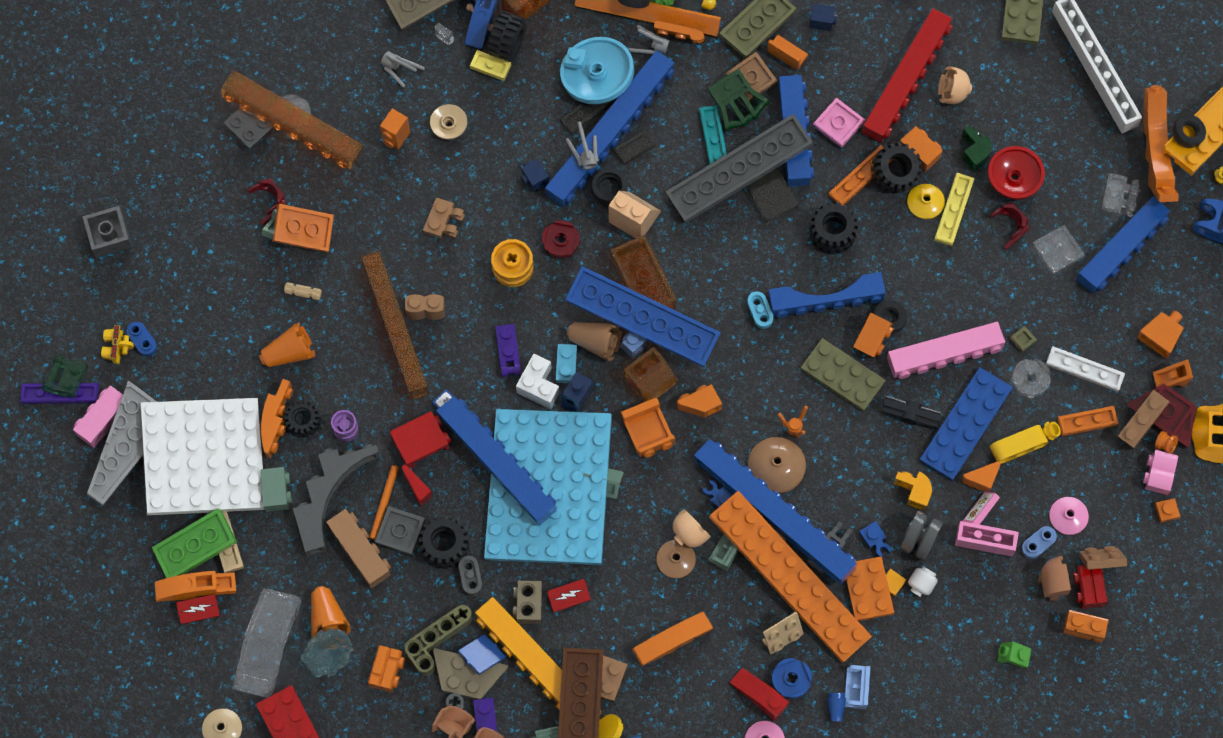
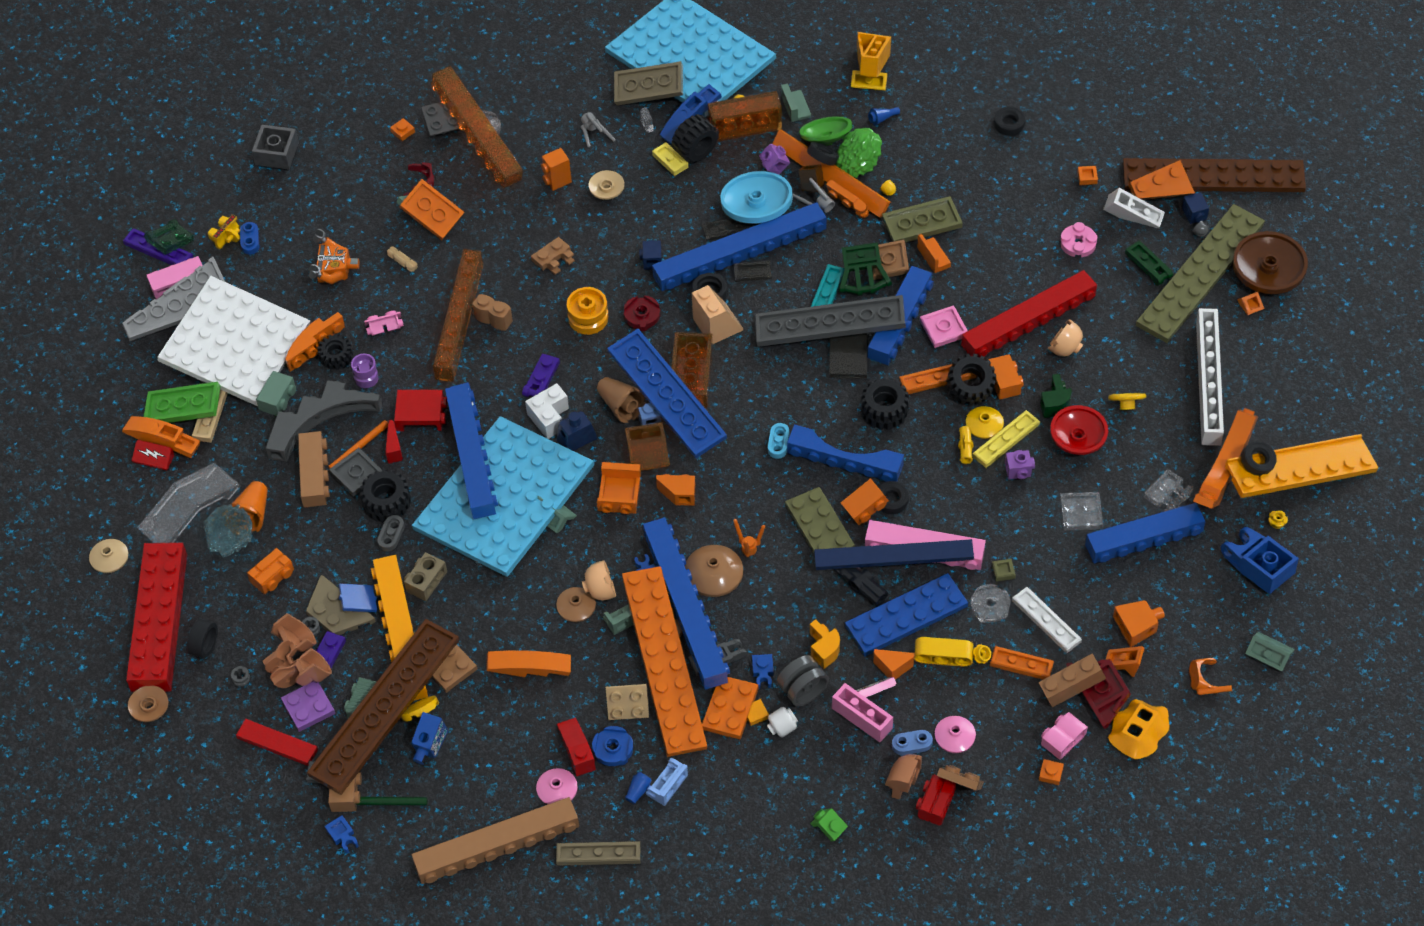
camera: 30 degrees right, 15 degrees down
(215, 152) = (402, 129): none -> orange plate
(240, 326) = (332, 260): none -> torso
(288, 348) = (360, 292): orange cone -> none
(323, 372) = (376, 323): none -> bright pink hinge
(441, 636) = (357, 562): olive beam -> none
(566, 362) = (587, 403): medium azure plate -> none
(568, 595) = (463, 587): red slope -> none
(576, 58) = (744, 179): medium azure plate -> none
(588, 21) = (774, 159): none -> medium lavender brick
(588, 159) = (701, 256): light grey plant -> none
(632, 23) = (814, 172): none -> dark brown brick
(823, 17) = (981, 239): dark blue brick -> none
(924, 233) = (965, 445): none -> yellow pin
(929, 375) = (894, 554): none -> dark blue tile
(983, 231) = (1019, 464): none -> medium lavender brick
(1021, 220) = (1056, 460): dark red helmet -> none
(1039, 120) = (1127, 400): none -> yellow piece
(1085, 626) = (909, 830): orange brick -> none
(1166, 442) = (1084, 712): orange wheel -> none

